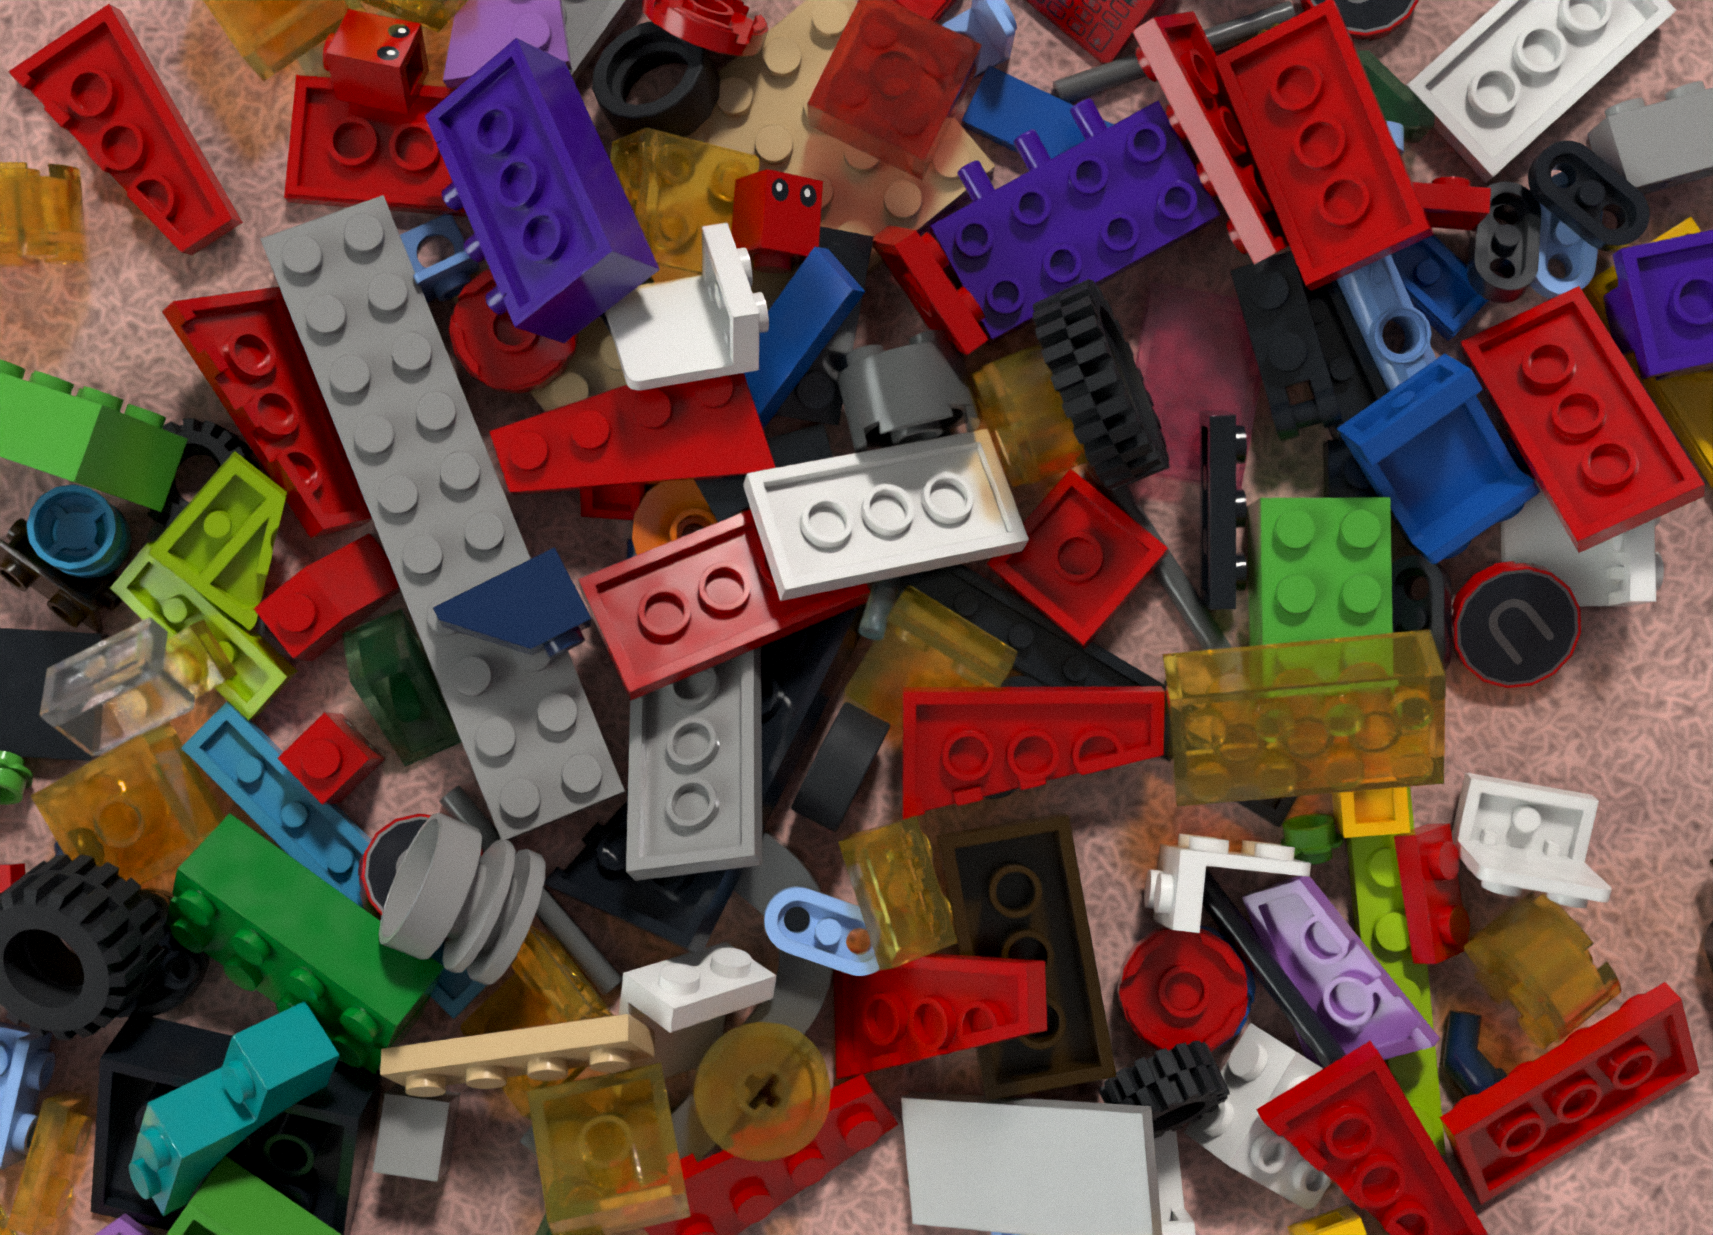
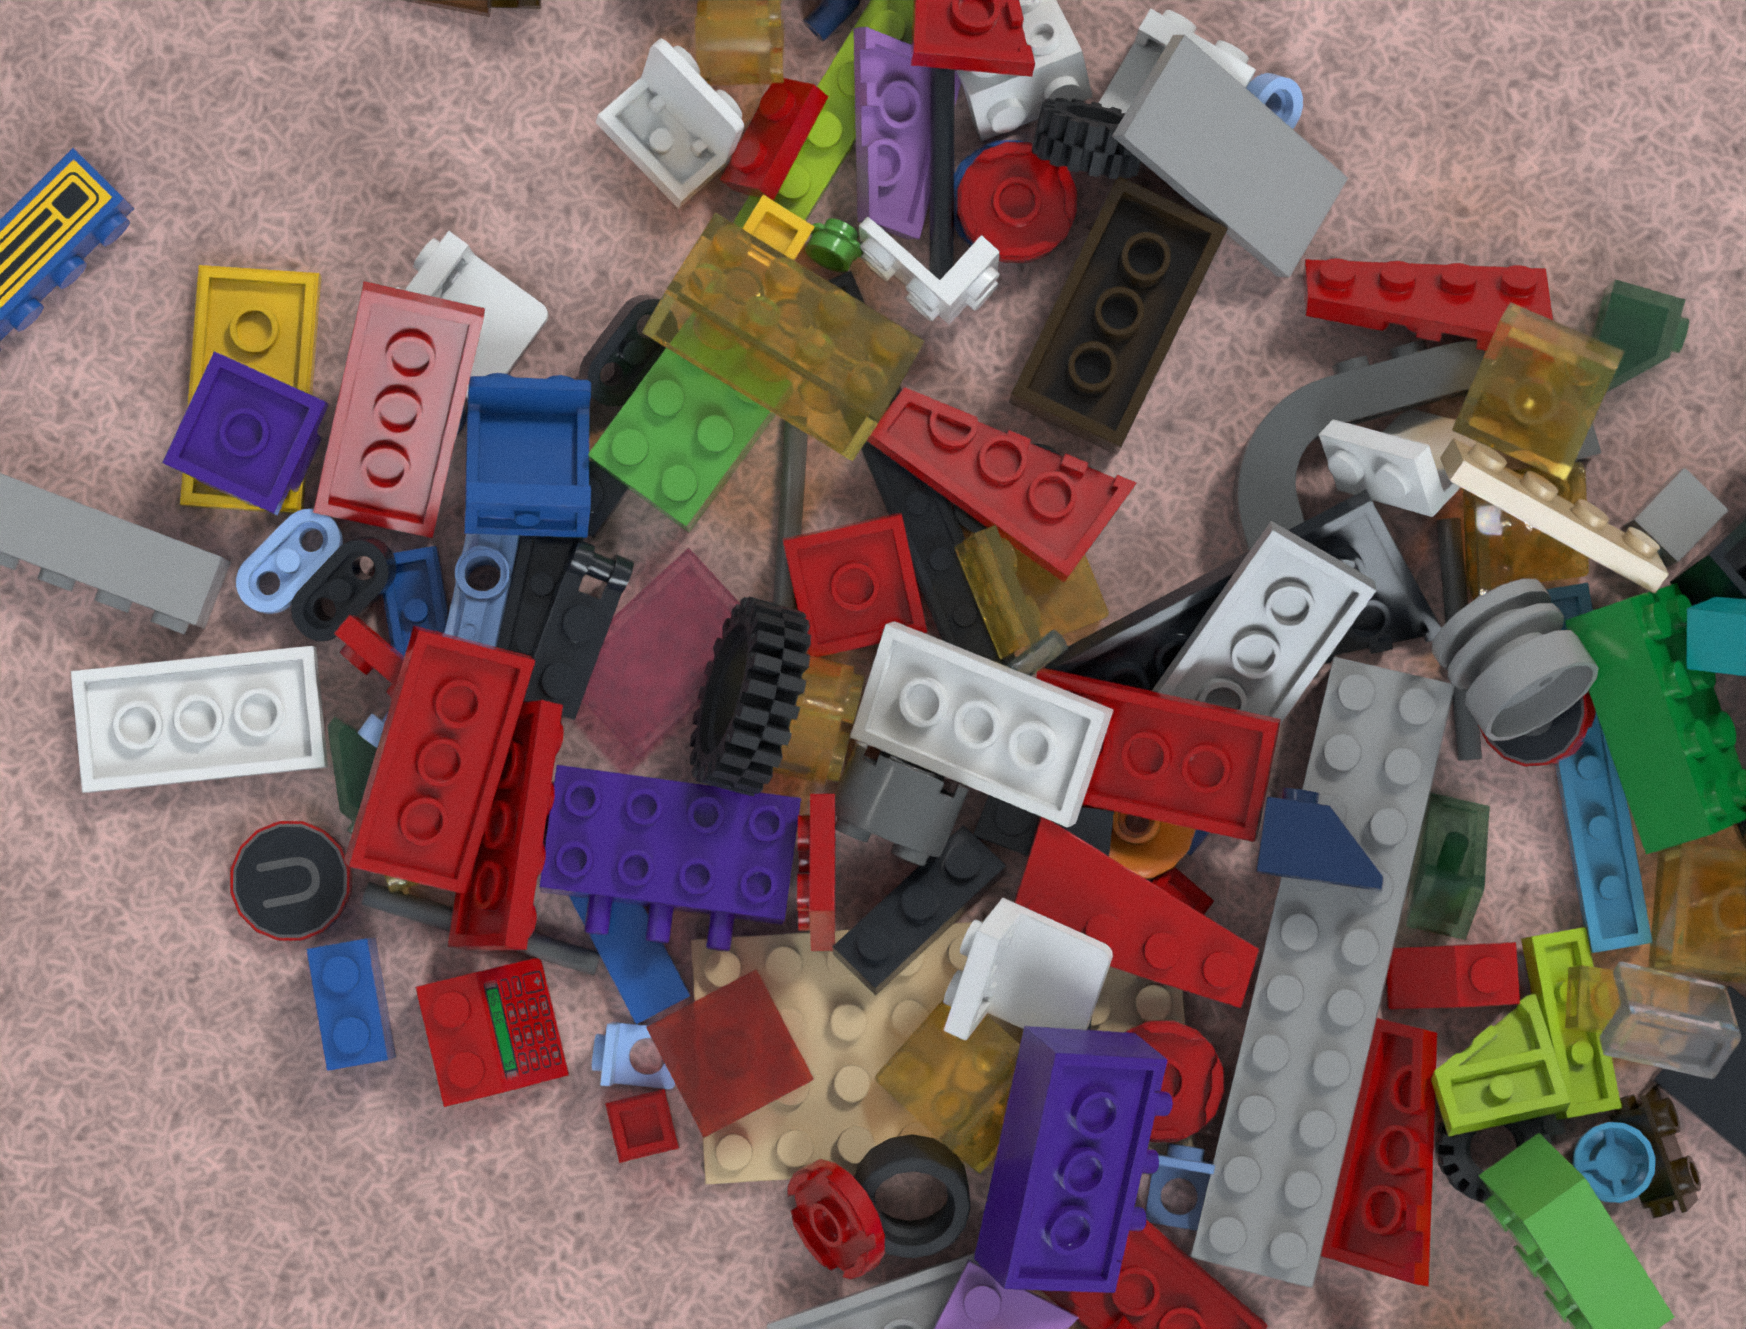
camera: 145 degrees left, 0 degrees up
(331, 758) = (1541, 849): red brick -> none
(776, 218) = (901, 1010): red brick -> none
(799, 1091) = (1362, 337): clear yellow brick -> none
(800, 327) = (940, 914): blue tile -> none
(826, 931) = (1256, 439): light blue plate -> none
(840, 766) = (1155, 556): black tyre -> none
(898, 892) = (1182, 430): clear yellow bracket -> none
(934, 1009) = (1220, 330): red wing -> none
(1221, 508) = (718, 541): black plate -> none
(1515, 624) = (558, 292): black tile -> none
(1590, 189) = (259, 575): black plate -> none

